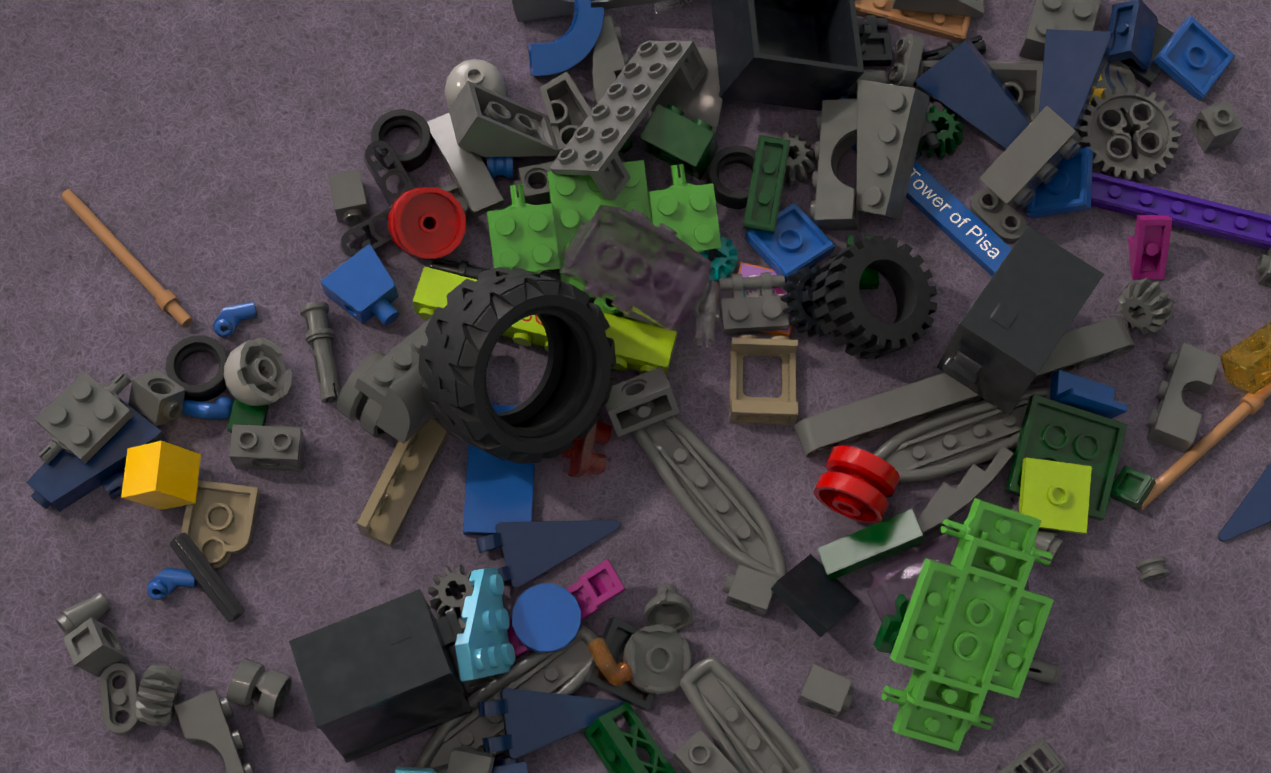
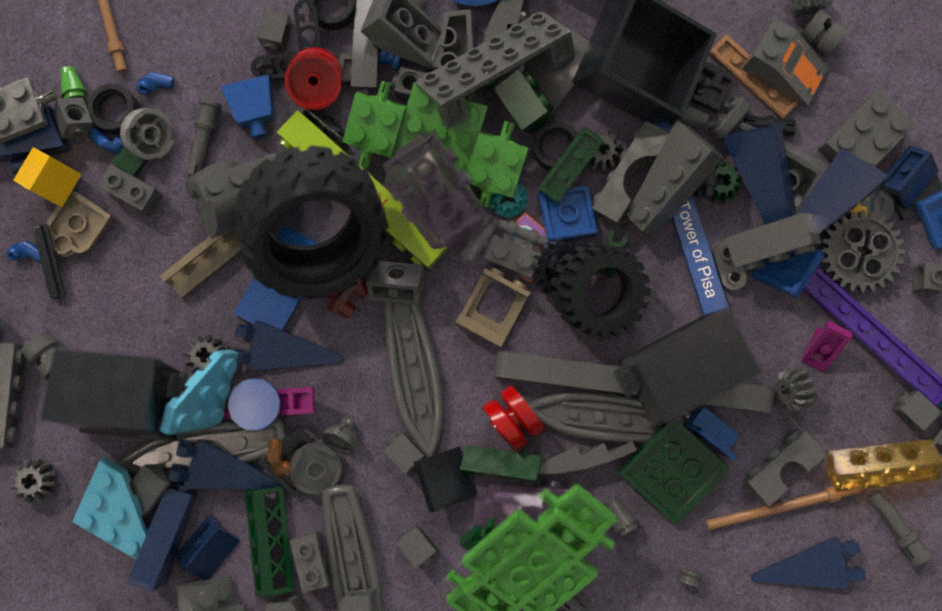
camera: 30 degrees right, 15 degrees up
(132, 362) = (71, 84): none -> bright green cone
(1056, 494) = (648, 494): lime plate -> none
(1132, 487) = (709, 512): dark green tile -> none

